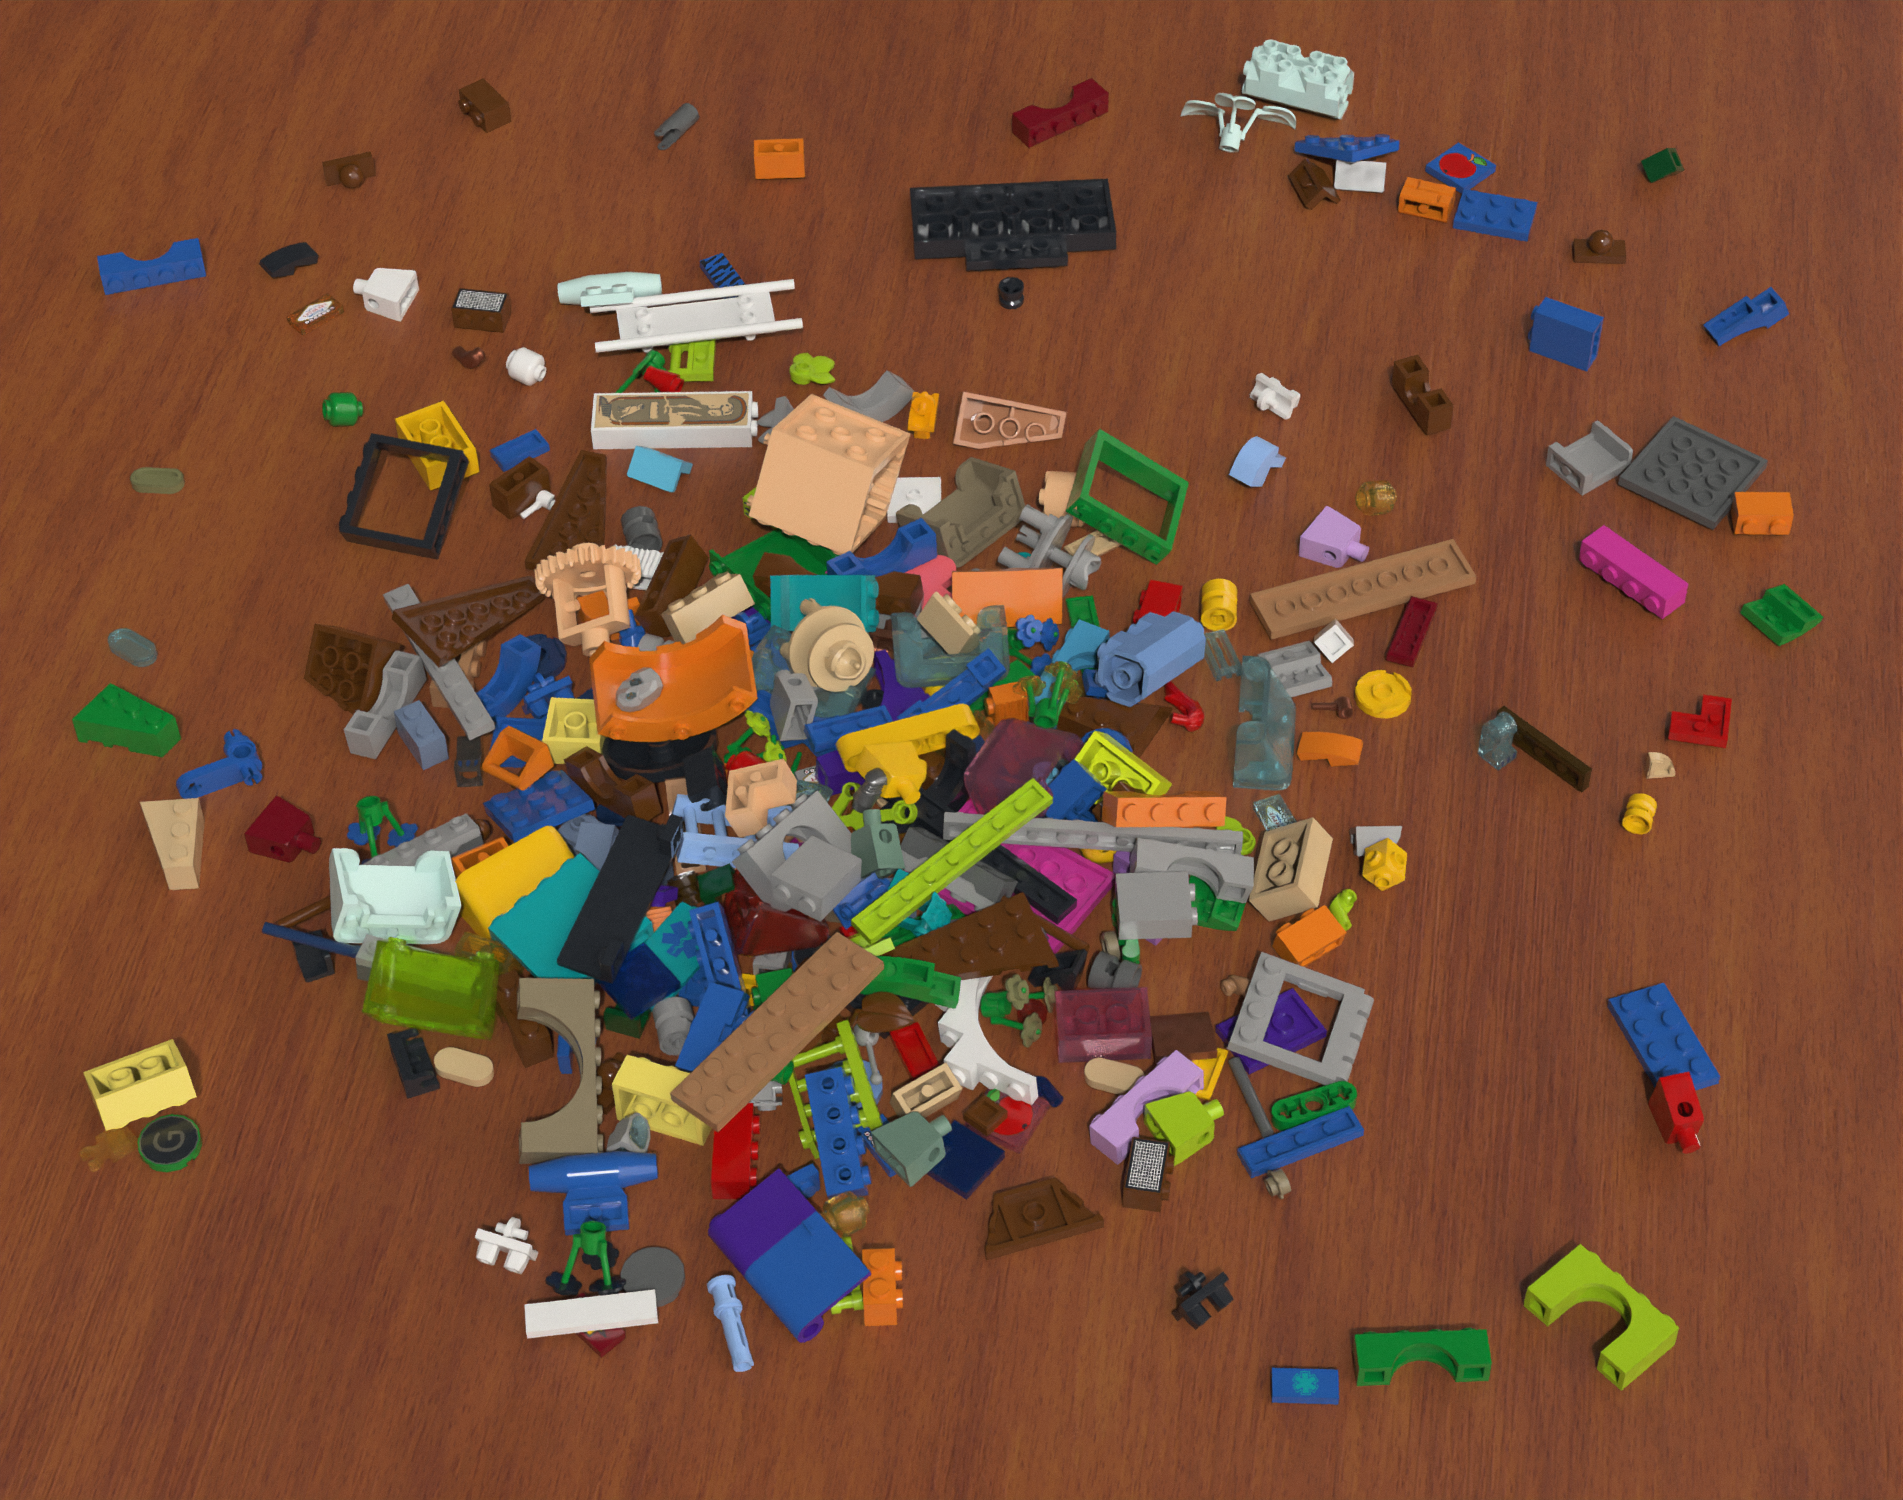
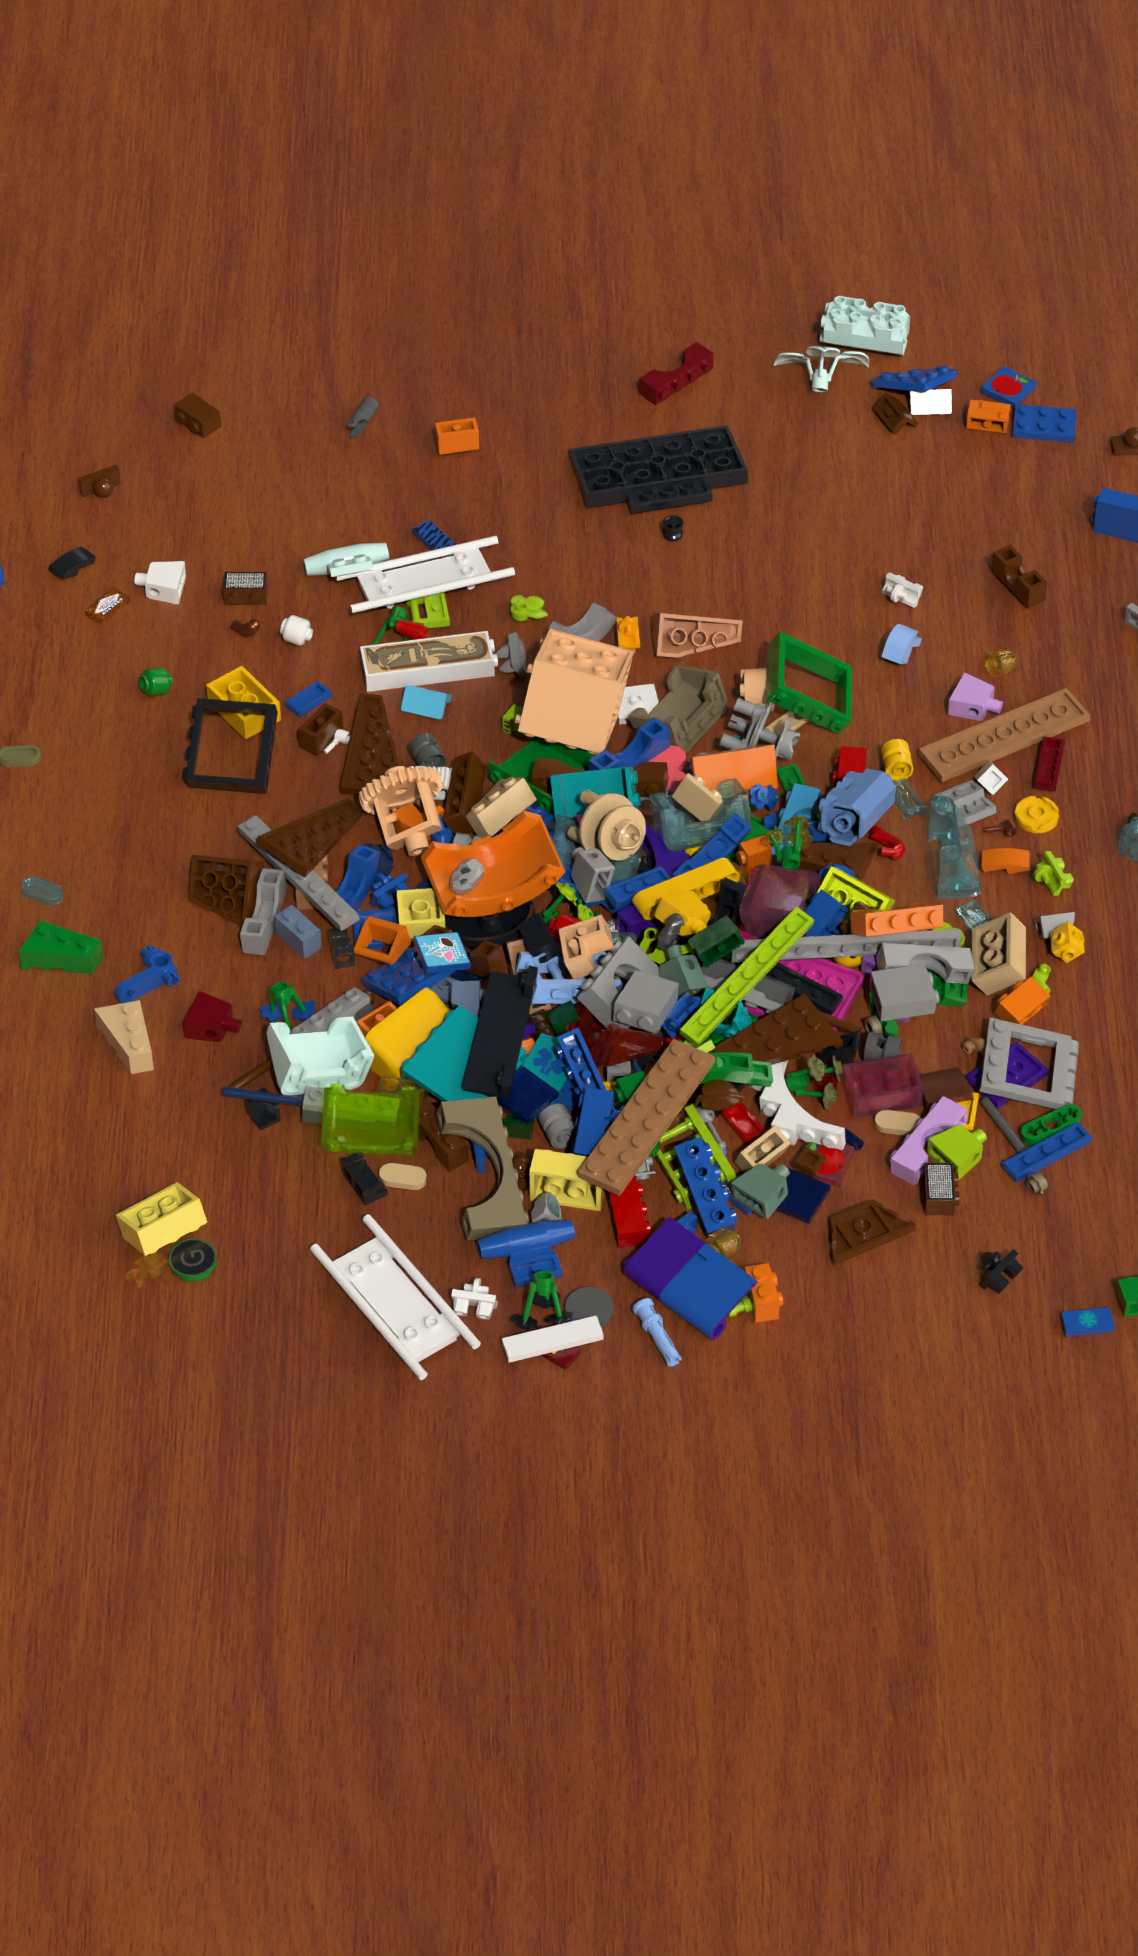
camera: 10 degrees left, 0 degrees up
(404, 1232) = (393, 1300): none -> white piece
(580, 783) = (441, 952): none -> tile
(922, 810) = (716, 941): none -> dark green brick
(1384, 771) = (1051, 873): none -> lime hips

